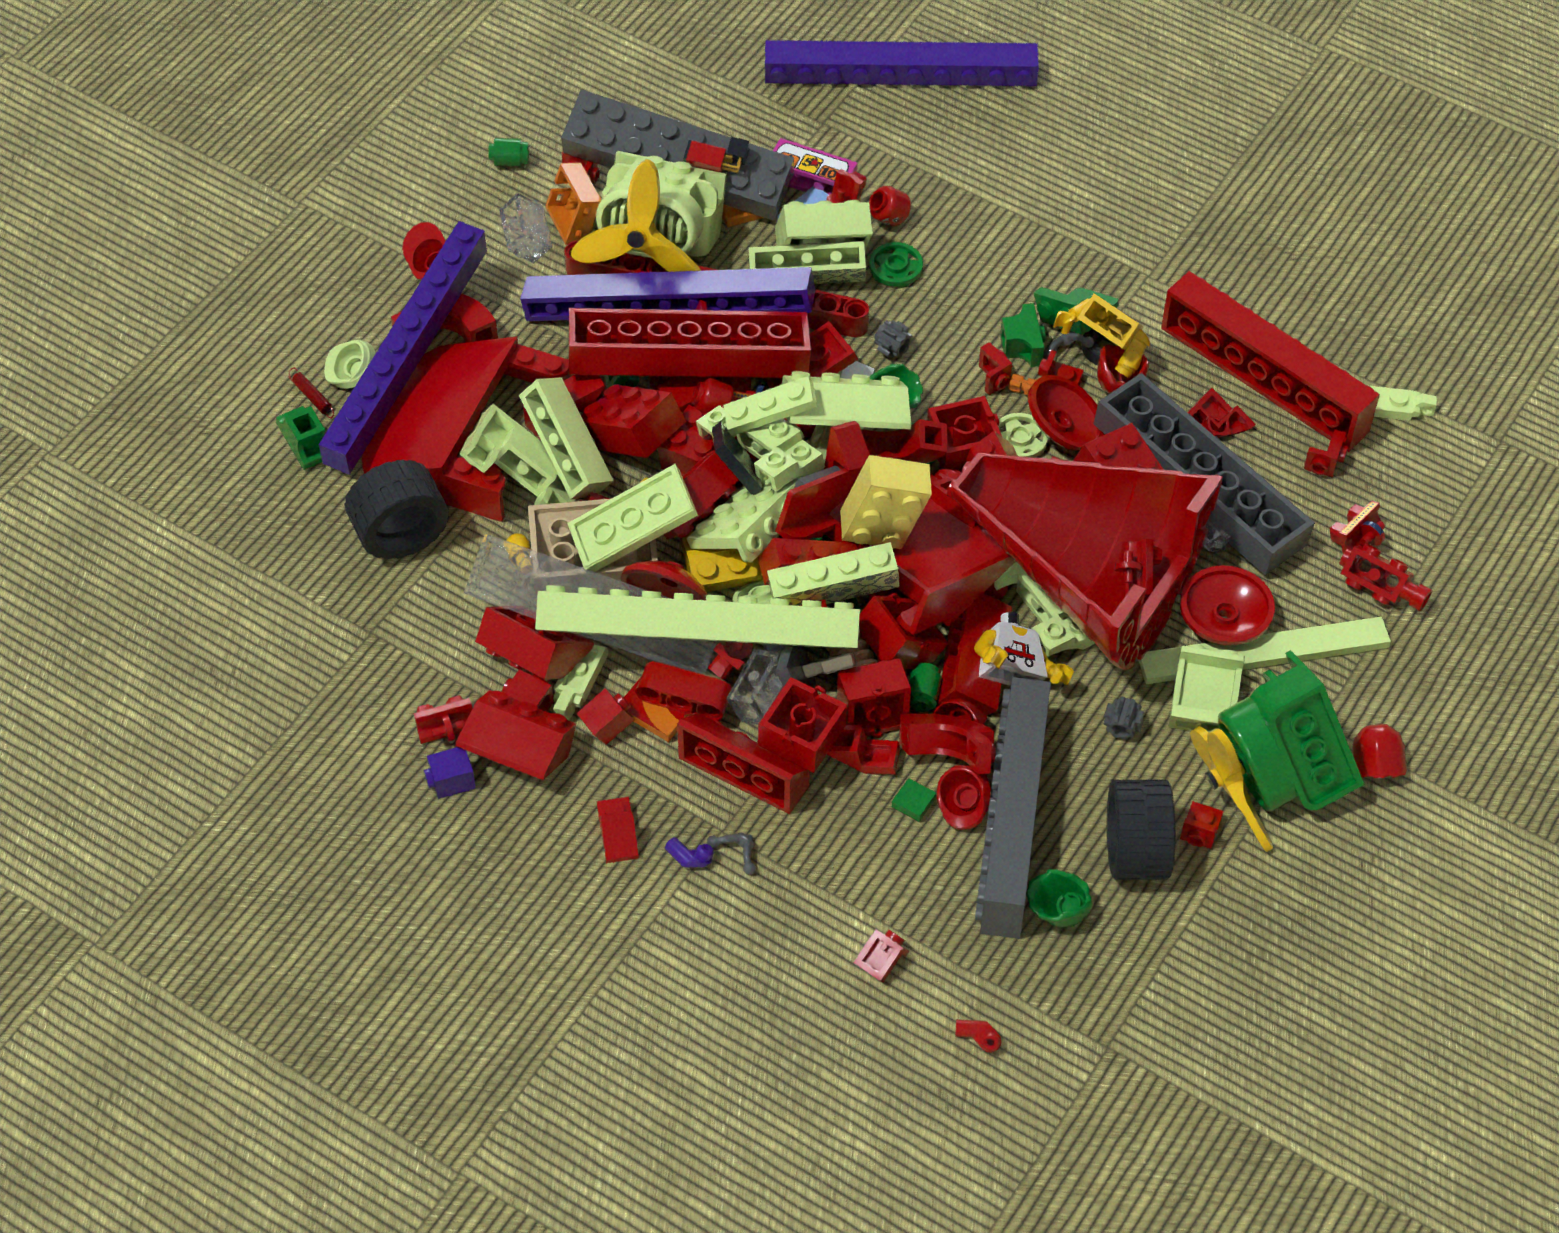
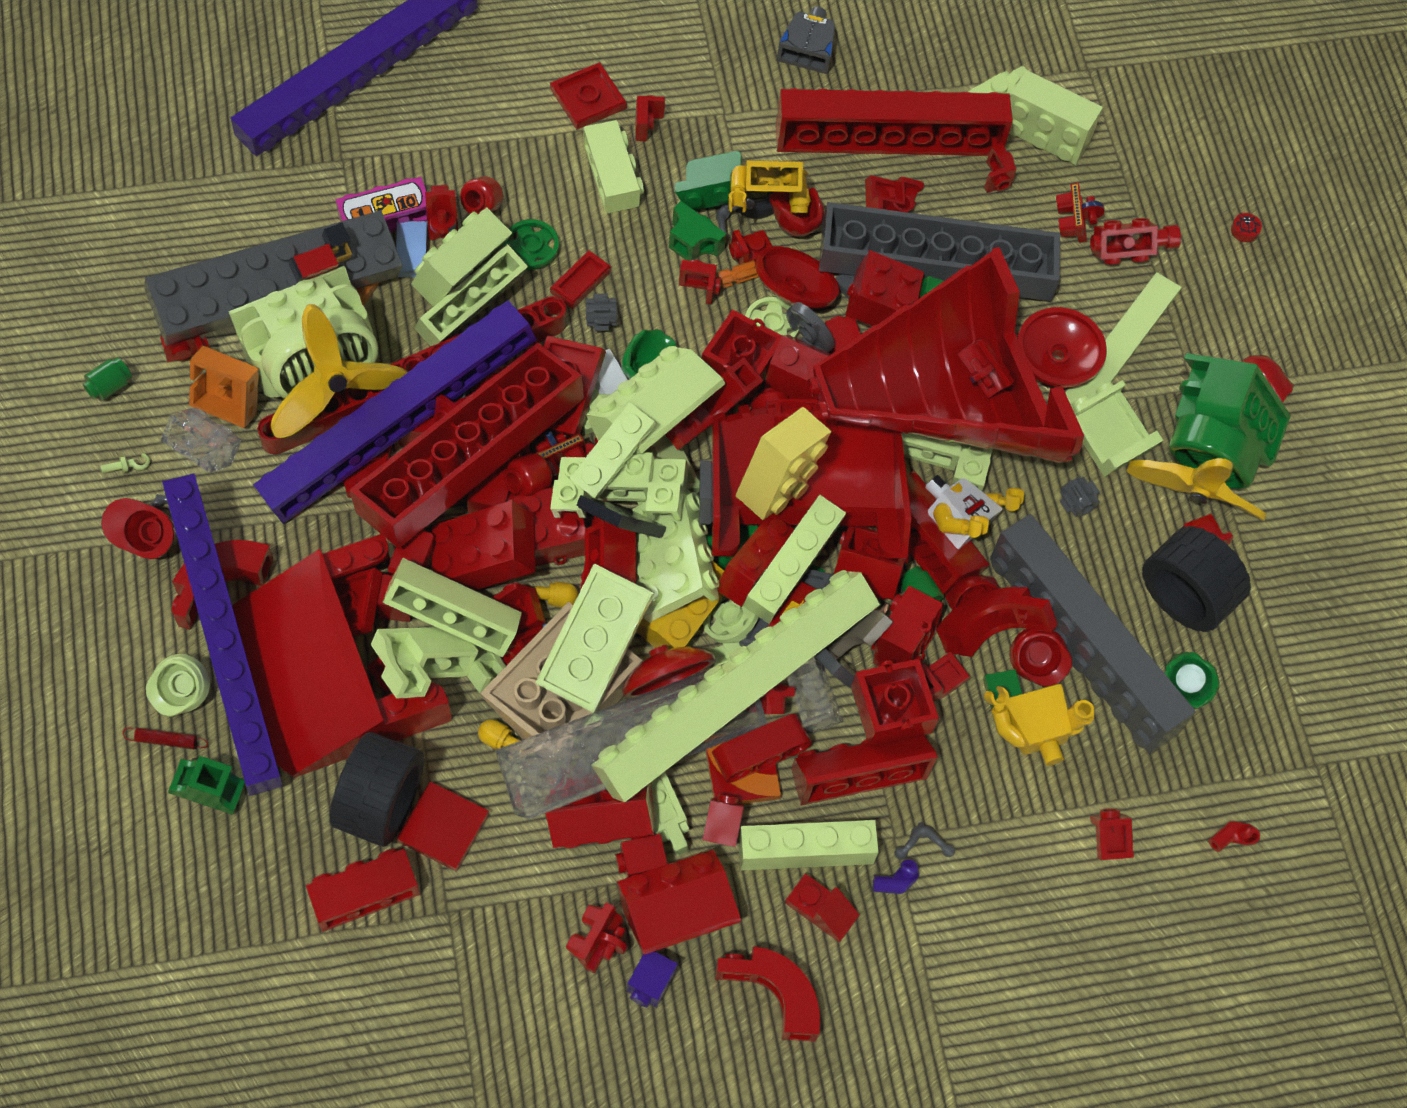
camera: 50 degrees left, 10 degrees up
(329, 571) = (362, 889): none -> red brick
(423, 578) = (443, 826): none -> red tile
(464, 212) = (125, 464): none -> yellowish green hand
(507, 394) = (359, 598): none -> red tile
(530, 867) = (787, 984): none -> red arch
(625, 476) = (523, 600): none -> red bracket
(648, 778) = (807, 845): none -> yellowish green brick
(846, 447) = (699, 442): red slope -> none
(908, 310) = (580, 279): none -> red tile
(910, 835) = (1039, 720): none -> yellow torso
(1013, 251) = (612, 166): none -> yellowish green brick
(1032, 439) = (810, 326): none -> dark grey tile
(1052, 195) = (588, 95): none -> red tile
(1078, 231) = (647, 110): none -> red bracket
(1271, 265) = (808, 41): none -> dark grey torso
(1410, 443) = (1052, 117): none -> yellowish green brick
(1505, 641) = (1246, 227): none -> red tile

